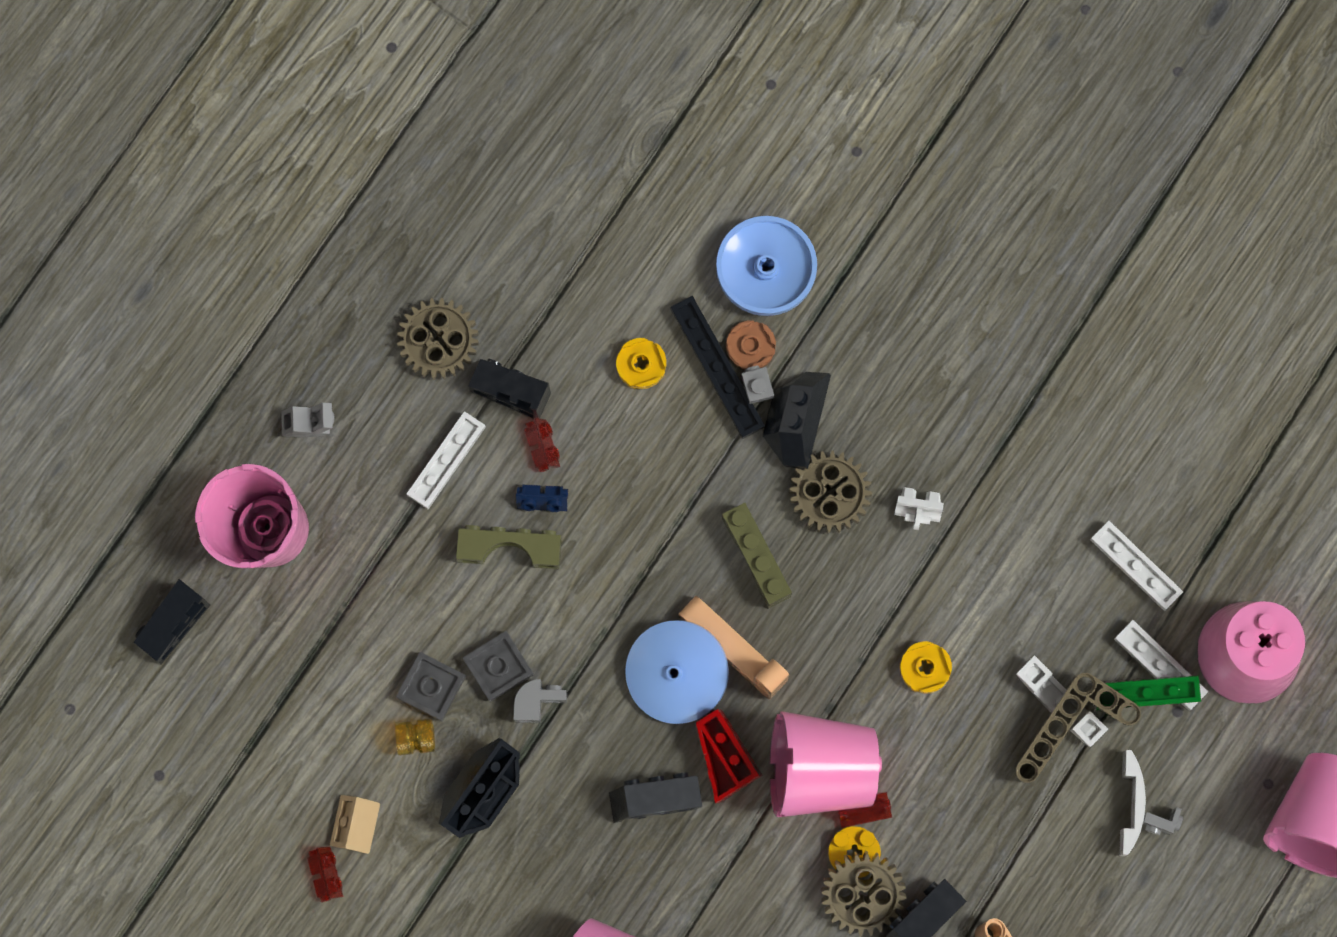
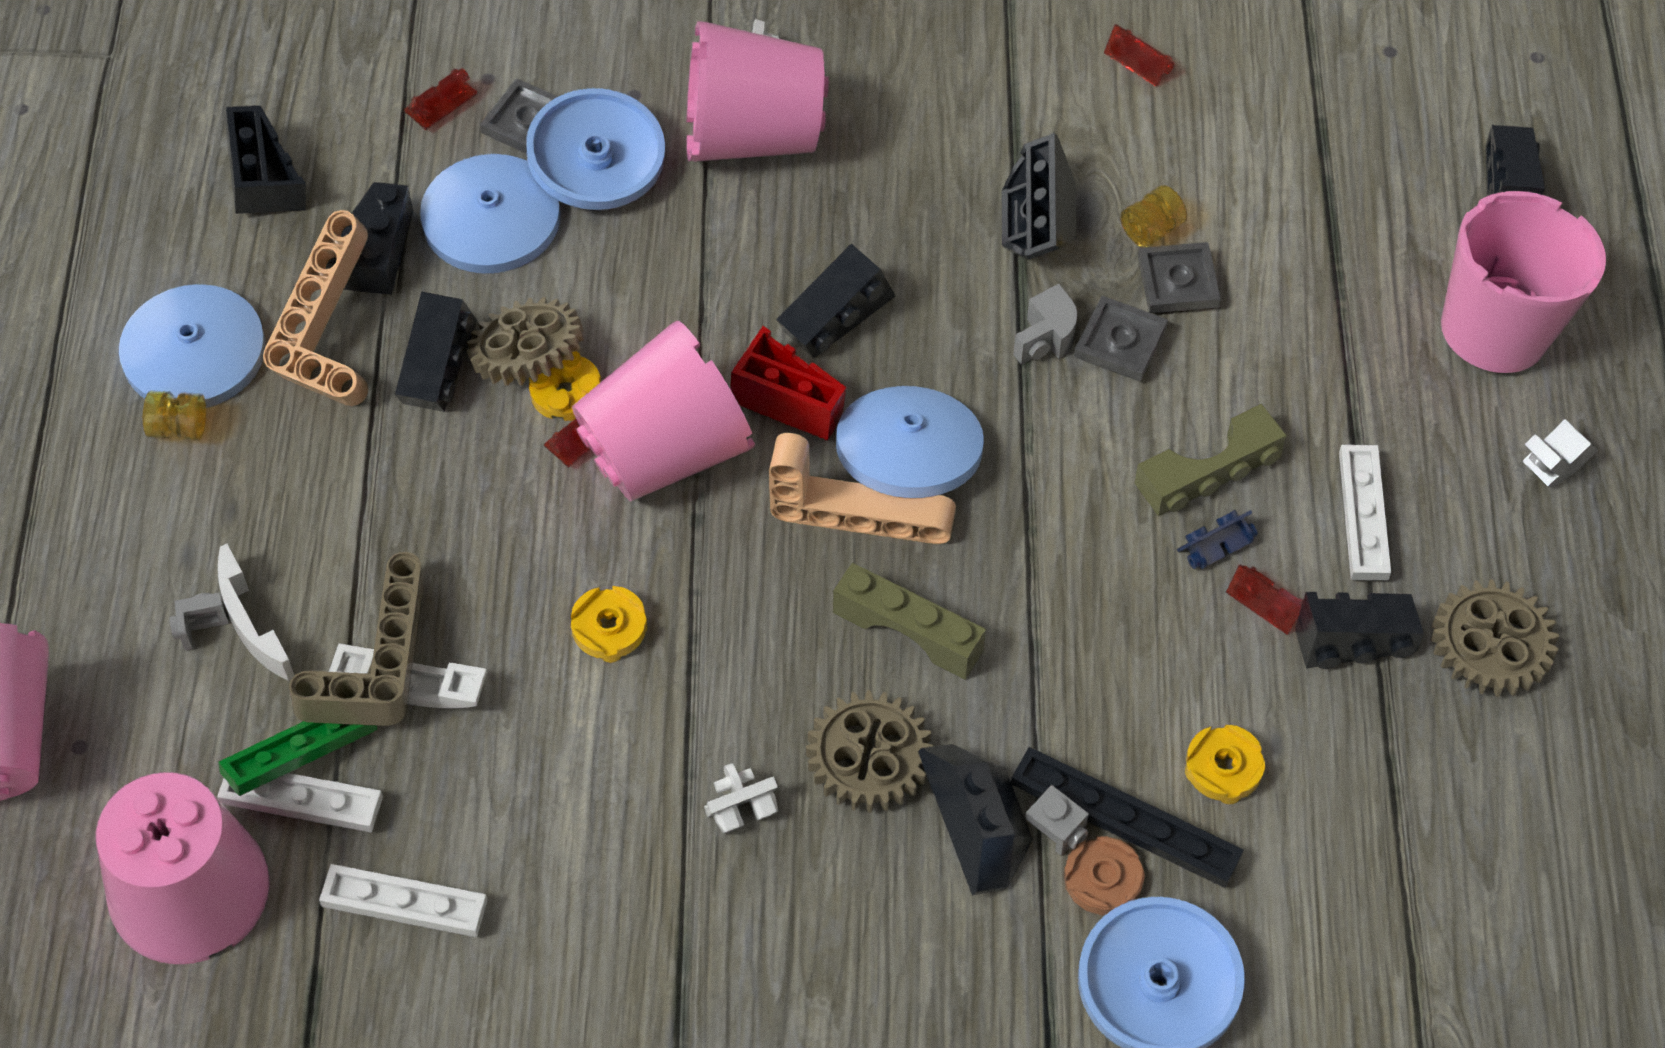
camera: 145 degrees right, 20 degrees down
(355, 824) = (1146, 111): tan panel -> none

